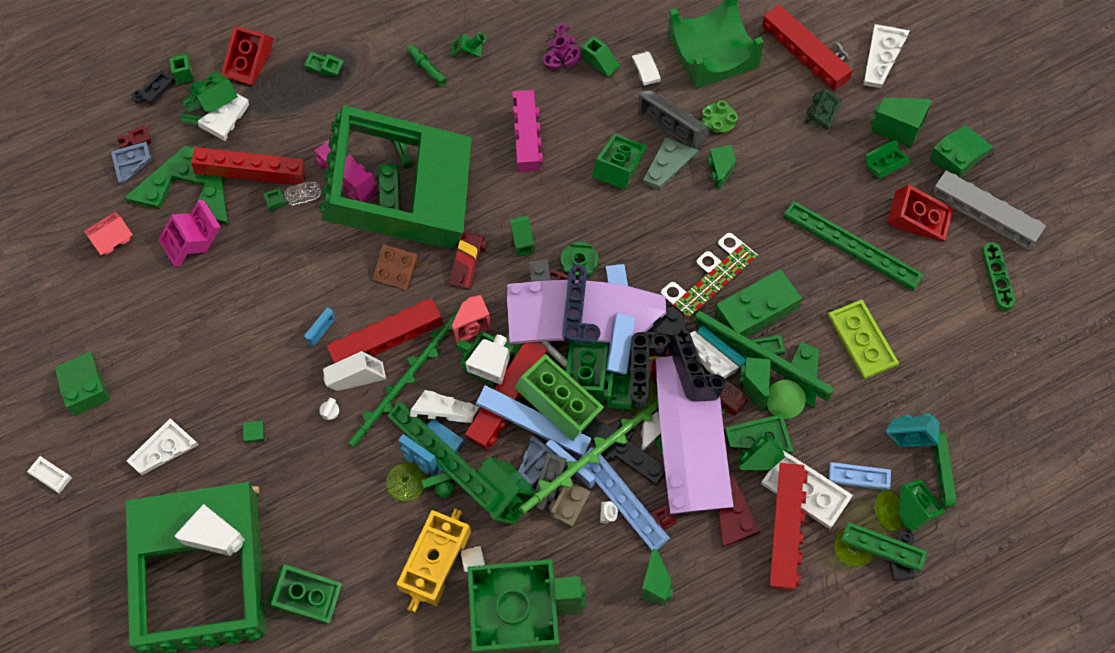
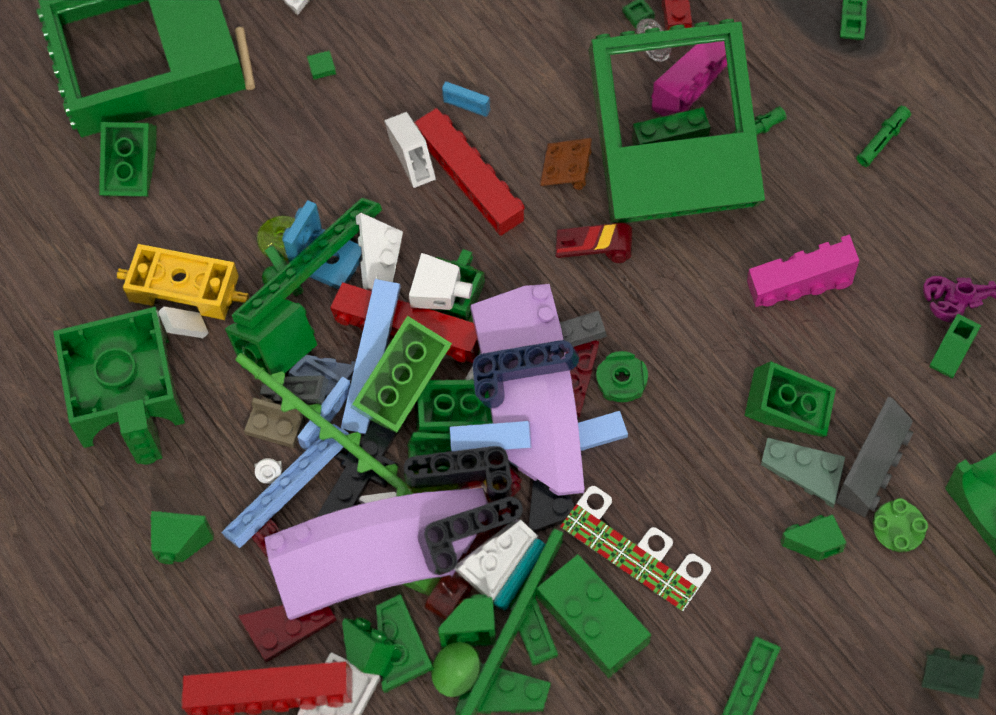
camera: 80 degrees right, 0 degrees up
(210, 533) = (168, 36): white slope -> none
(329, 410) = (359, 134): white plate -> none
(392, 391) = (437, 214): green plant -> none
(468, 44) = (929, 179): green bracket -> none
(471, 319) = (501, 259): coral slope -> none
(522, 236) = (637, 296): green slope -> none
(646, 68) = (957, 413): white slope -> none

